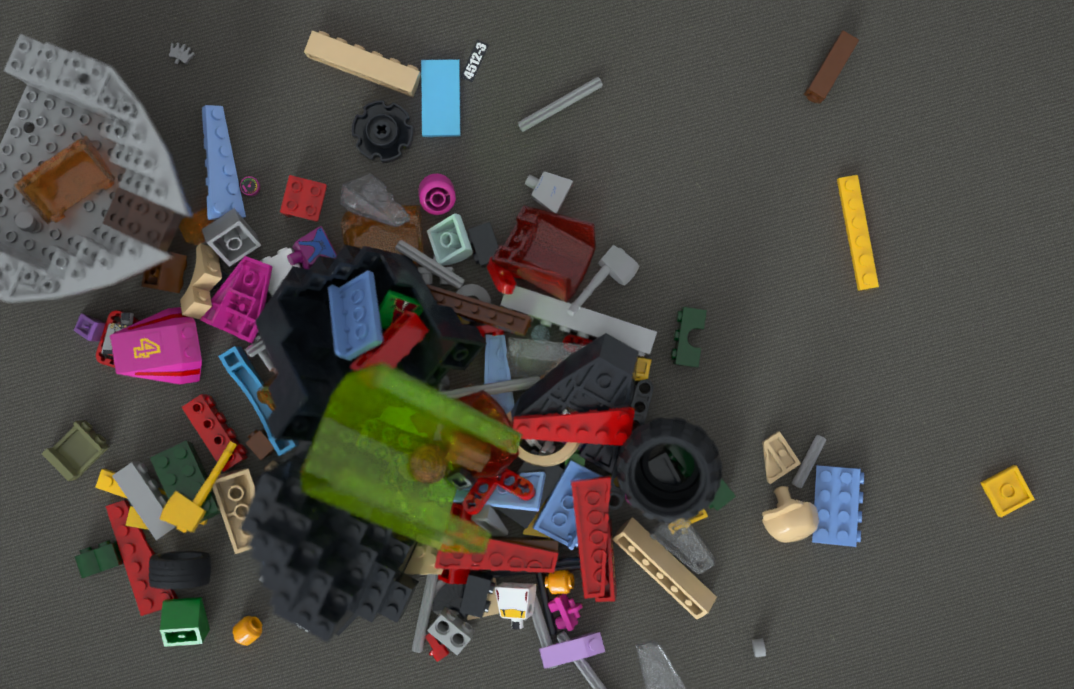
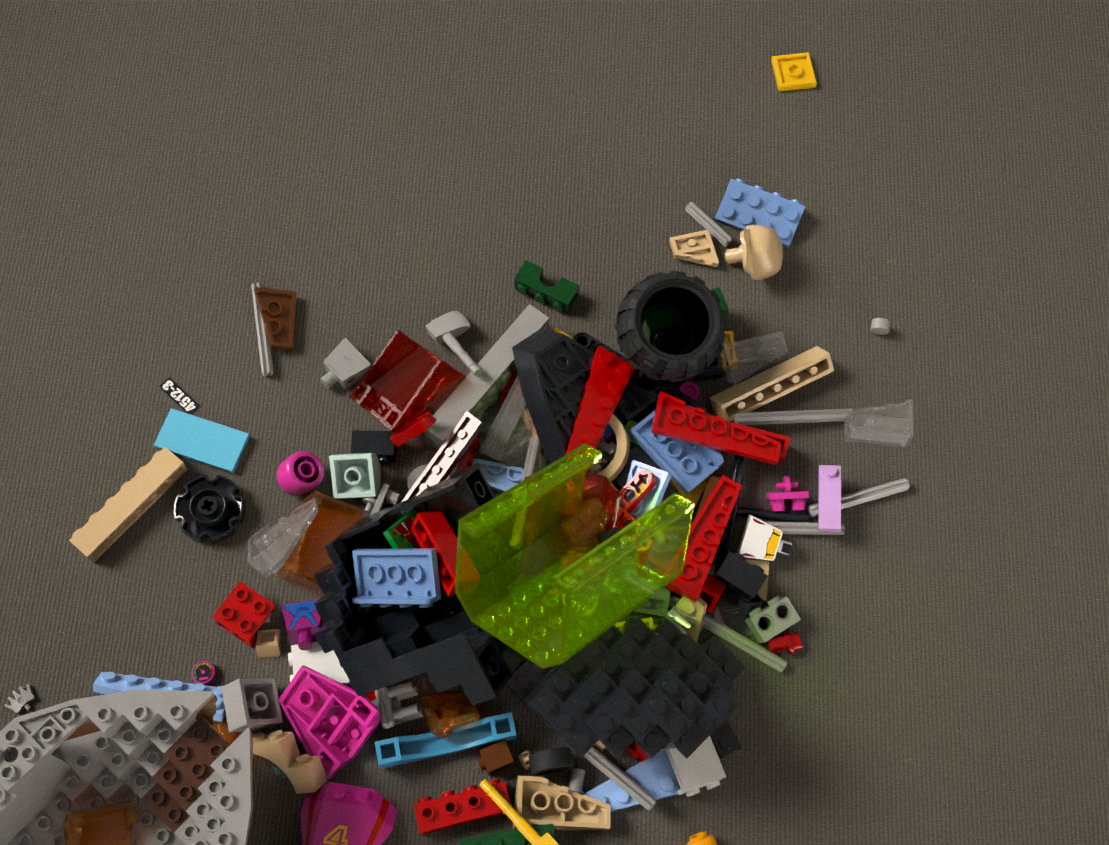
camera: 70 degrees left, 20 degrees down
(167, 275) = (268, 803): reddish brown slope -> none
(292, 227) = (268, 643): none -> tan slope
(418, 550) = (677, 616): none -> piece
(430, 264) = (371, 502): light grey axle -> none
(560, 582) = (754, 491): light orange head -> none
(575, 113) = (278, 316): none -> reddish brown wing
(640, 596) = (785, 417): none -> light grey axle
(831, 67) = (338, 83): reddish brown brick -> none
(857, 232) = (503, 113): yellow plate -> none

